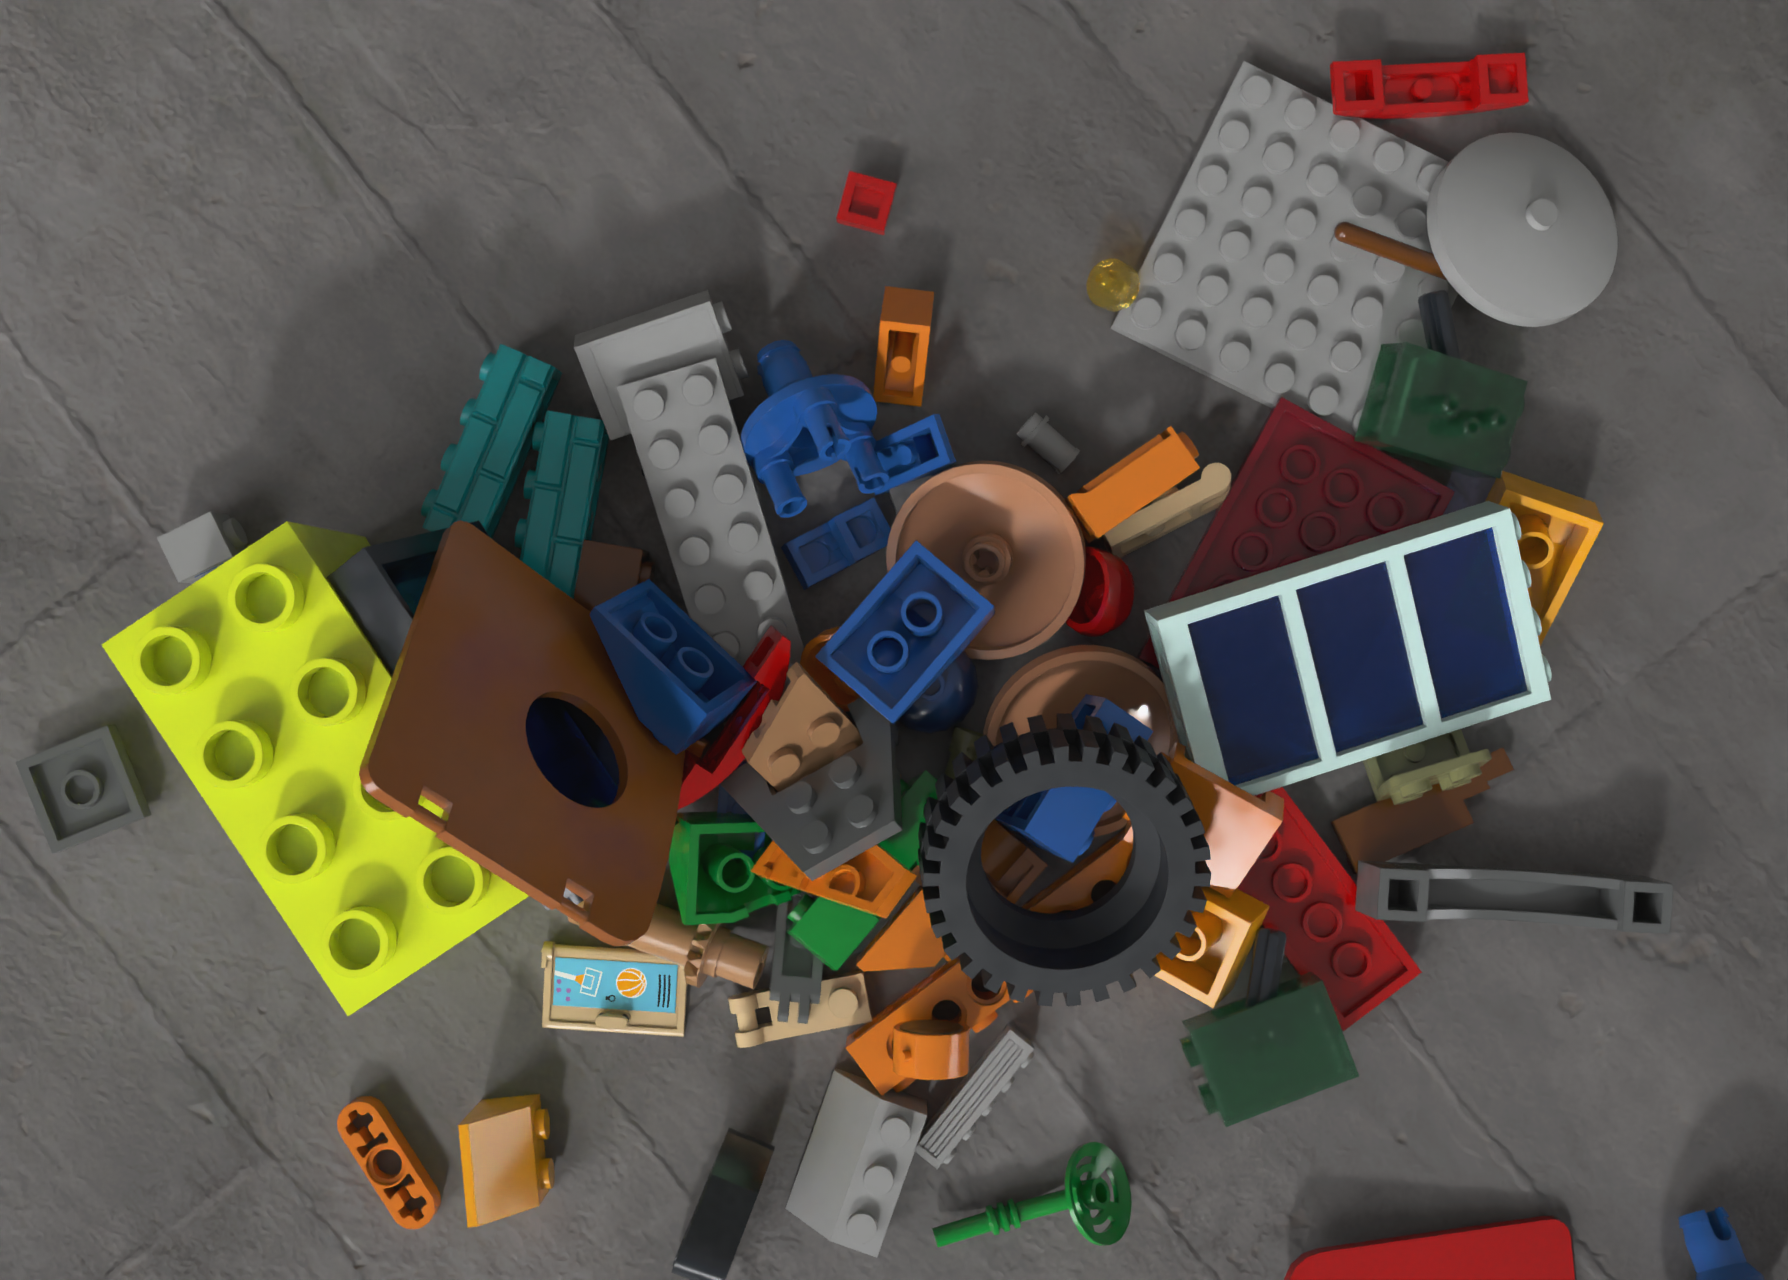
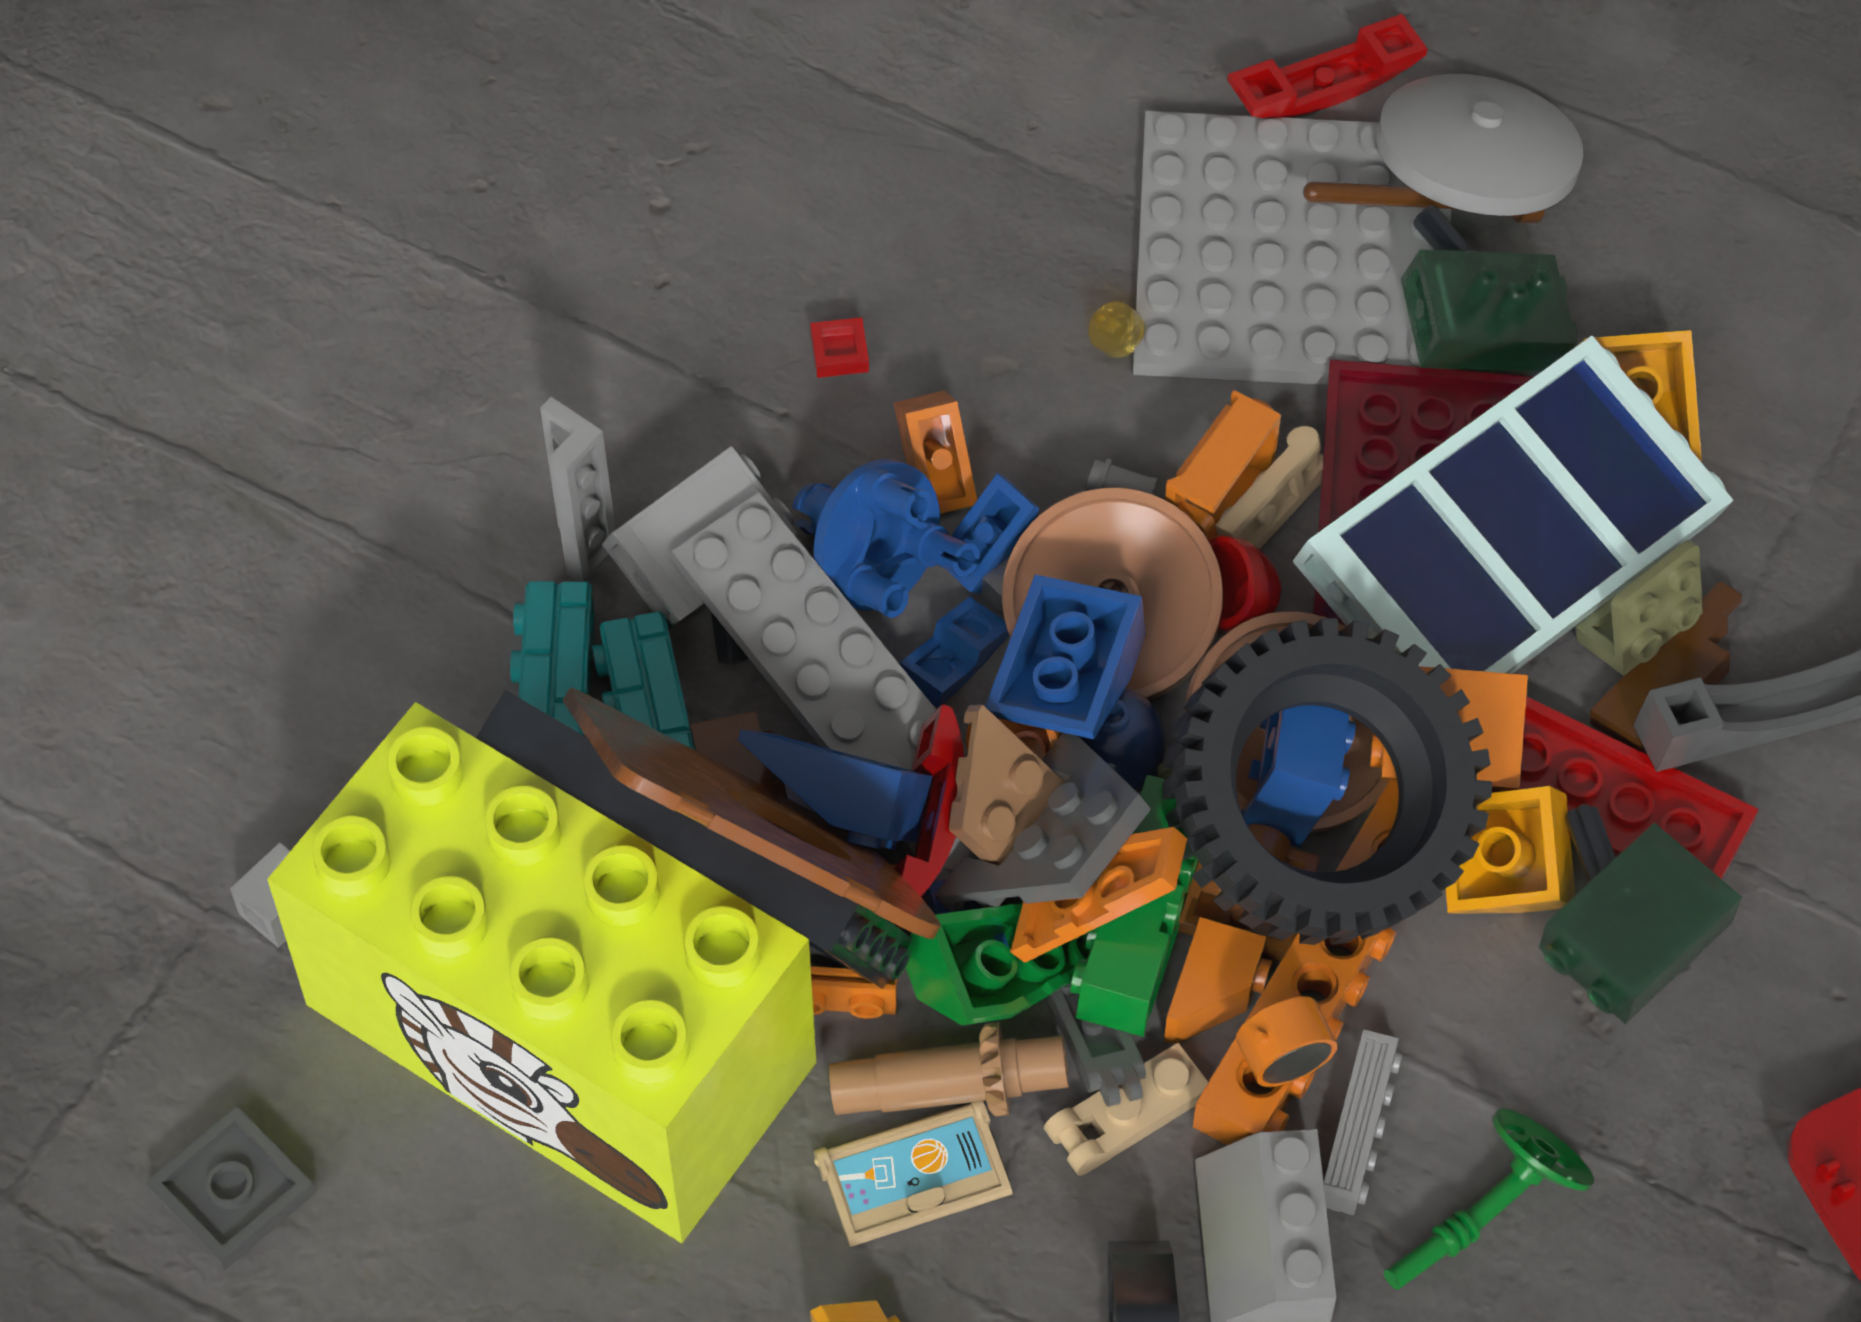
camera: 15 degrees left, 30 degrees down
(558, 297) = (579, 488): none -> light grey fence

